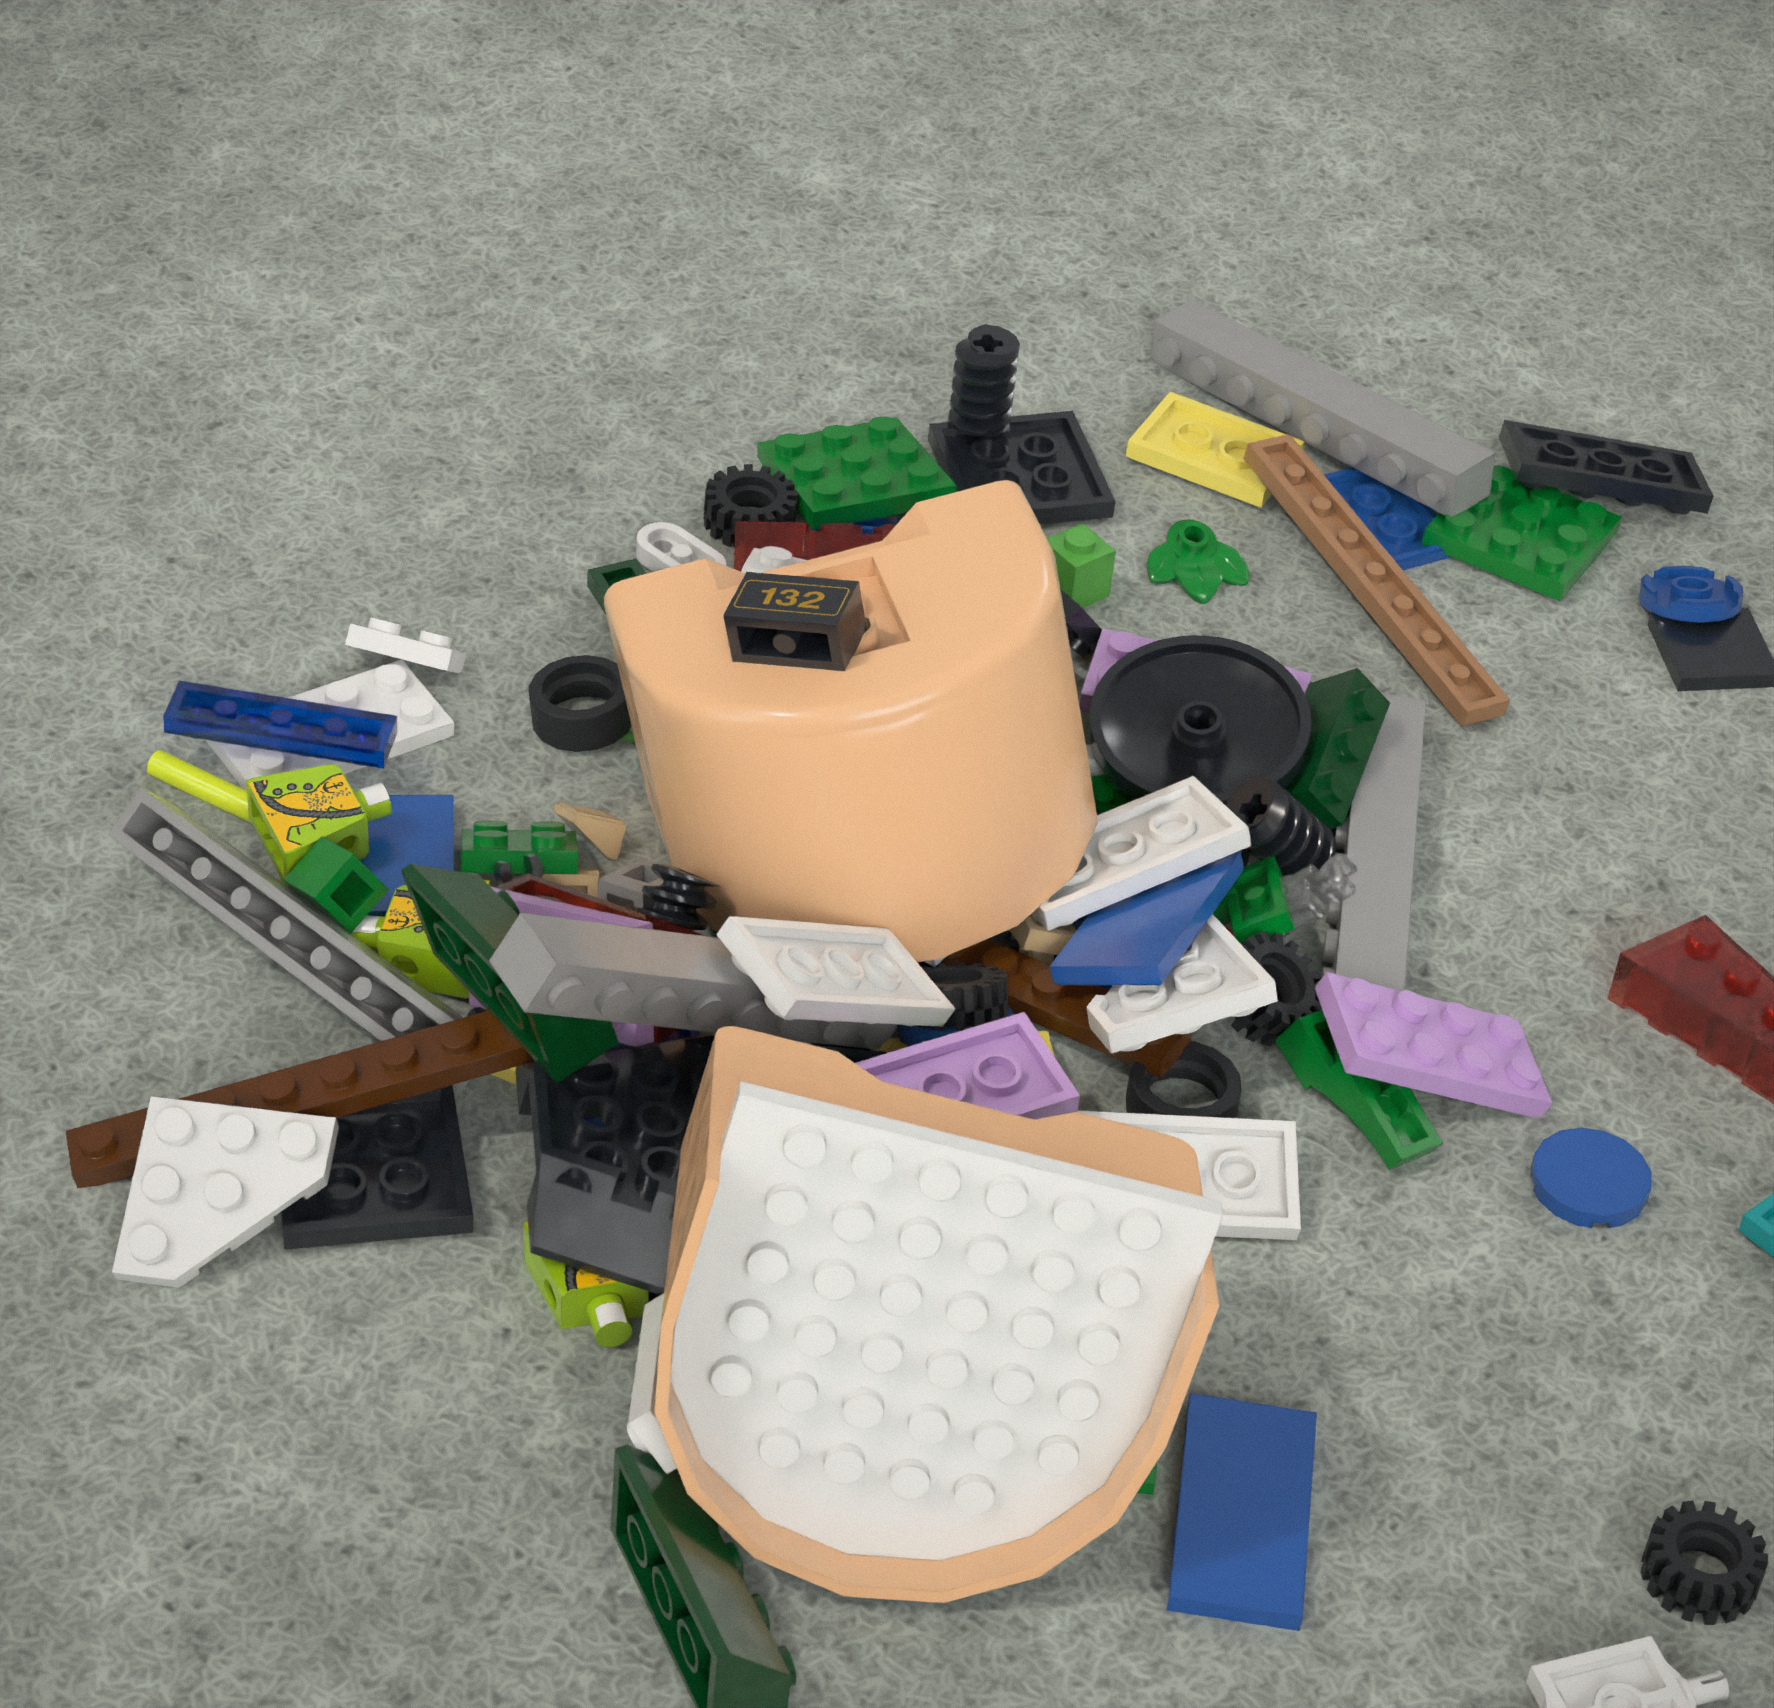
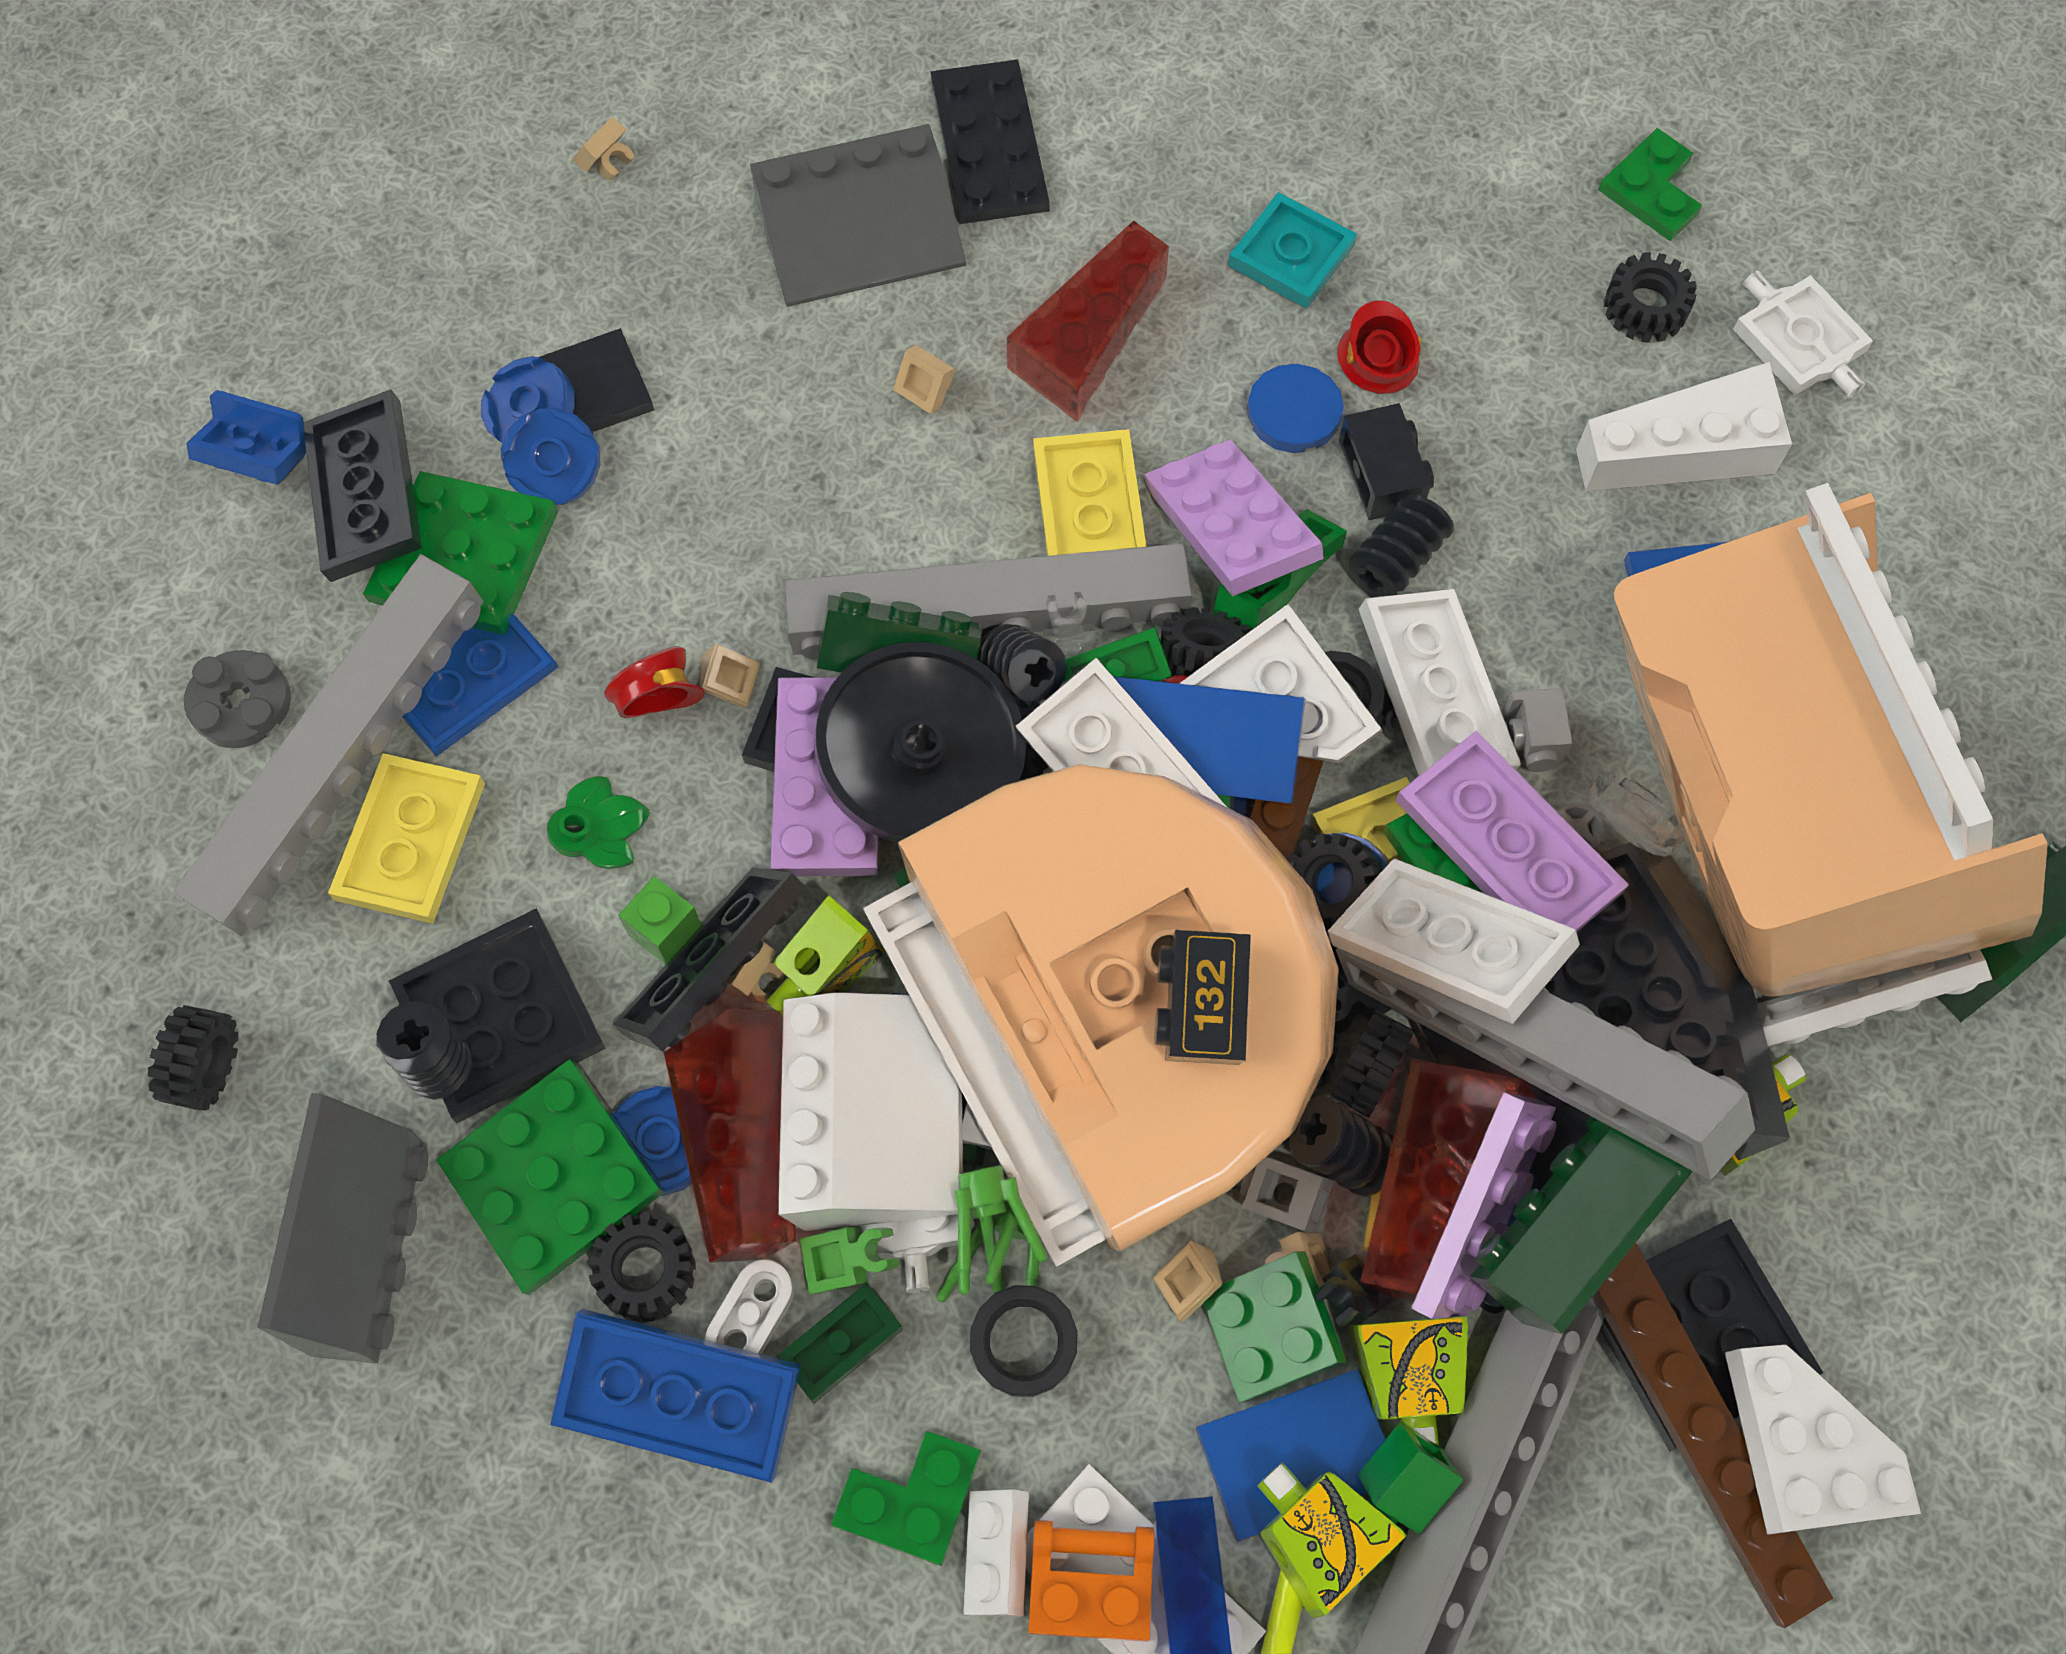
camera: 100 degrees left, 25 degrees up
(343, 665) = (1091, 1602): none -> orange plate
(472, 617) = (917, 1516): none -> green plate
(628, 502) = (676, 1395): none -> blue tile
(843, 324) = (343, 1233): none -> dark grey slope
(1049, 279) = (193, 1057): none -> black tyre
(1332, 601) = (653, 685): none -> red piece
(1335, 659) = (728, 675): none -> tan slope
(1365, 1194) = (1400, 546): none -> black piece
(1377, 581) = (589, 660): medium nougat plate -> none
(1413, 371) = (217, 679): none -> dark grey plate
(1475, 1528) = (1689, 435): none -> white wedge
(1491, 1218) = (1384, 458): none -> black brick
(1494, 966) = (1088, 492): none -> light yellow plate
(1618, 593) = (551, 455): none -> blue tile
(1661, 1270) = (1380, 348): none -> red piece
(1674, 416) = (249, 438): none -> blue bracket
(1678, 876) = (923, 379): none -> tan tile

